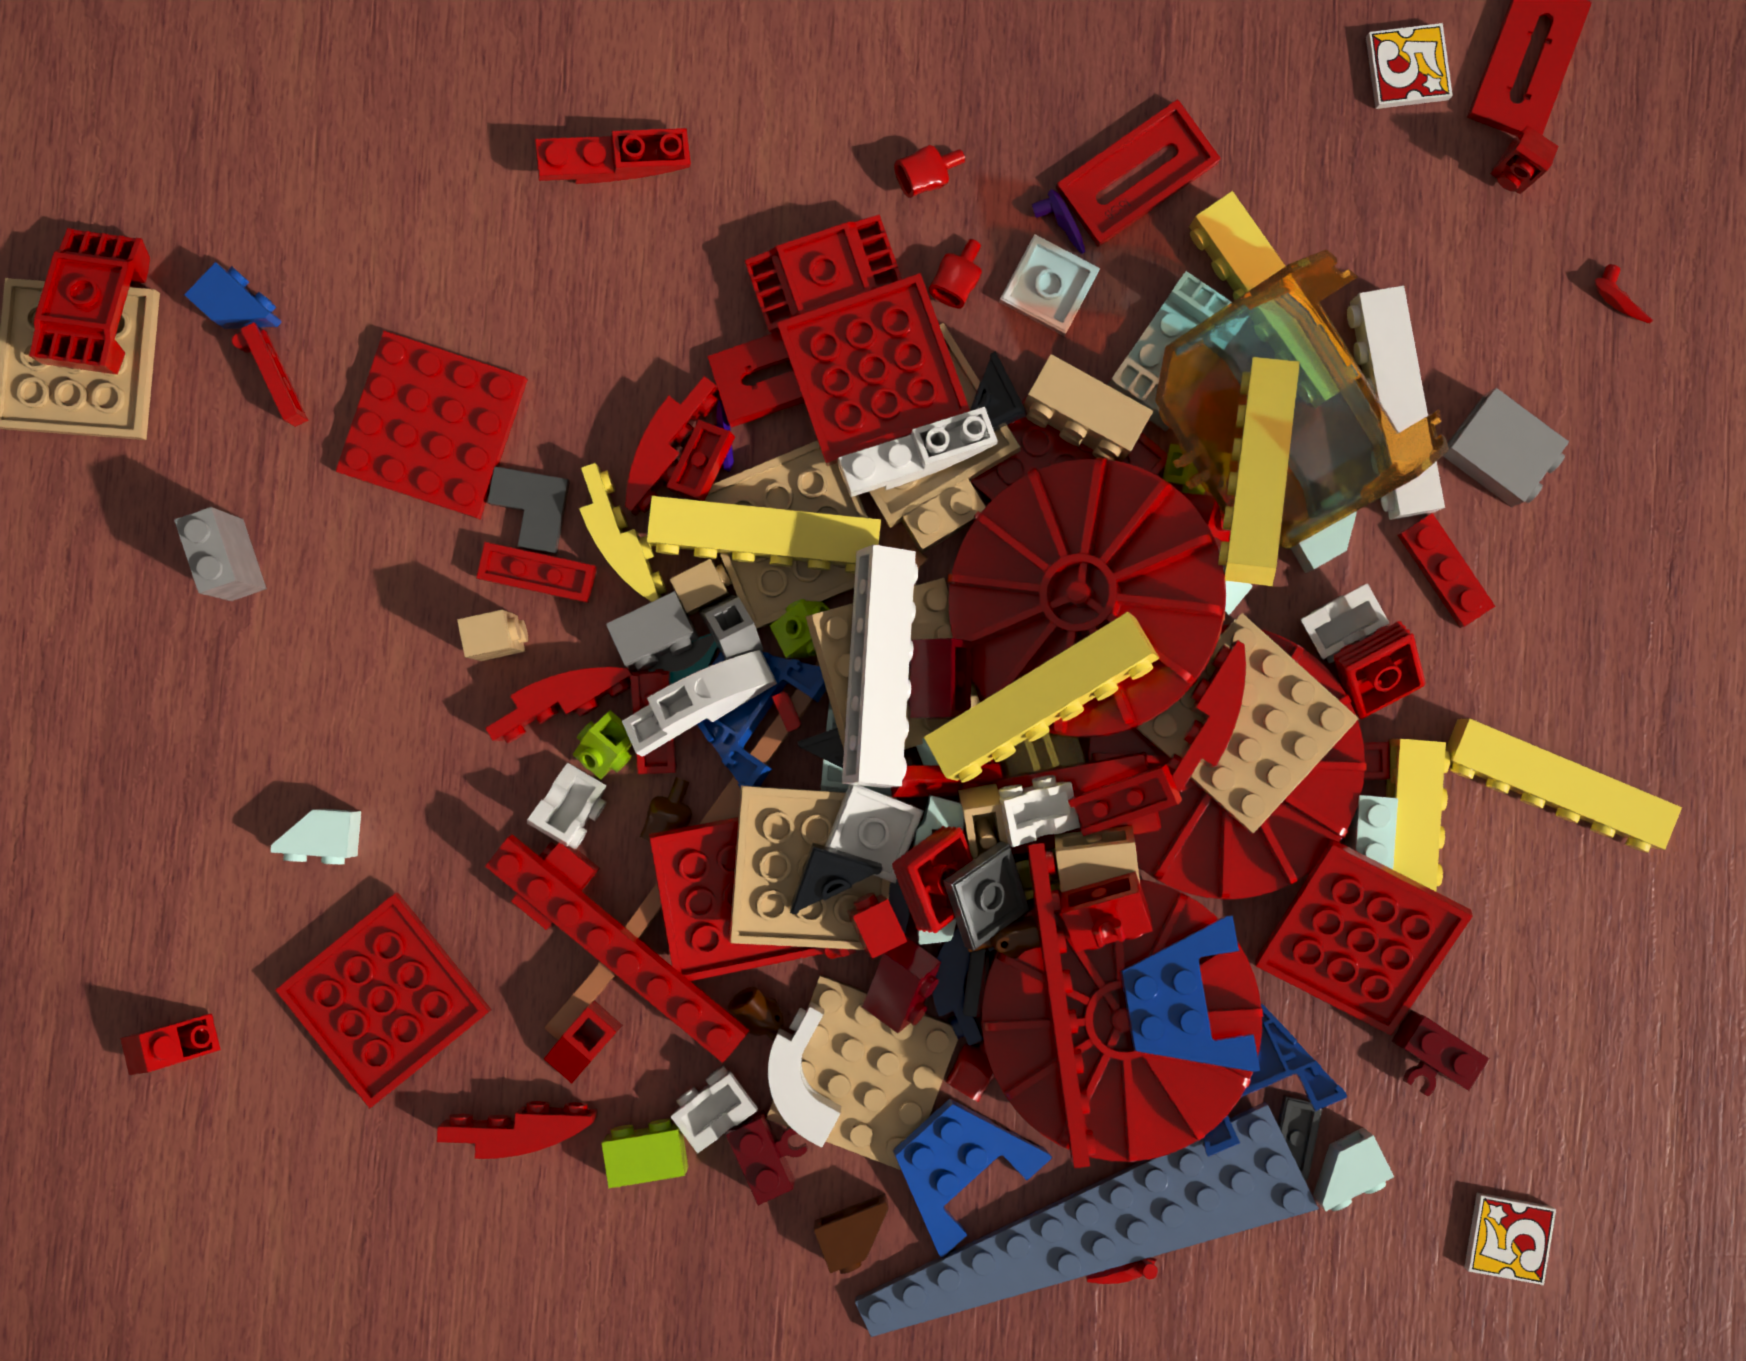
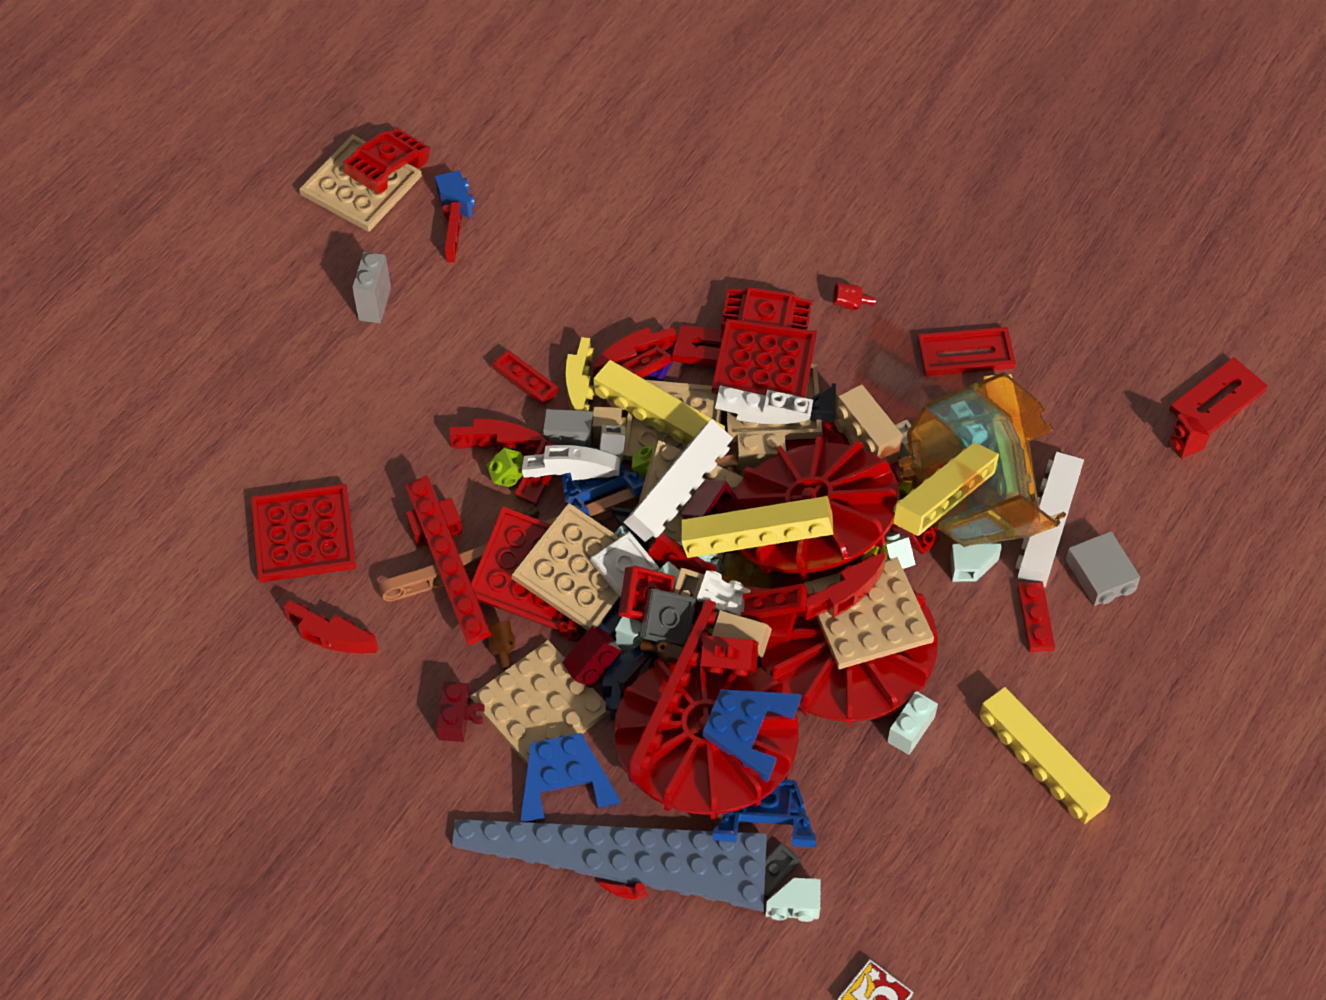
camera: 30 degrees right, 30 degrees down
(170, 1044) = (177, 495): red slope -> none
(322, 833) = (328, 439): light aqua slope -> none
(431, 424) = (516, 291): red plate -> none
(492, 635) = (483, 388): tan brick -> none
(540, 498) = (548, 348): dark grey tile -> none
(569, 806) = (467, 489): white cylinder -> none
(582, 1041) = (395, 602): red slope -> none
(613, 157) = (692, 222): red slope -> none
(644, 1153) = (390, 678): lime brick -> none
(712, 1110) = (434, 672): white cylinder -> none
(787, 711) = (615, 490): red tile -> none
(795, 1099) = (496, 670): white arch -> none
(828, 874) = (587, 566): black tile -> none
(850, 1233) = (478, 779): reddish brown slope -> none
(876, 924) = (597, 606): red brick -> none
(957, 276) = (837, 349): red piece -> none
(971, 1072) = (600, 734): red piece -> none
(1049, 285) = (886, 379): white tile -> none
(1062, 215) = (911, 344): dark purple bar -> none
(1344, 621) = (958, 609): white cylinder -> none
(1363, 937) = (875, 768): red plate -> none
(1377, 760) = (936, 690): red tile -> none
(1380, 669) = (975, 649): red brick -> none
(1409, 66) = (1147, 370): tile -> none
(1417, 782) = (944, 728): light yellow brick -> none
(1438, 1053) = (887, 861): dark red brick -> none
(1616, 297) = (1210, 529): red bar -> none

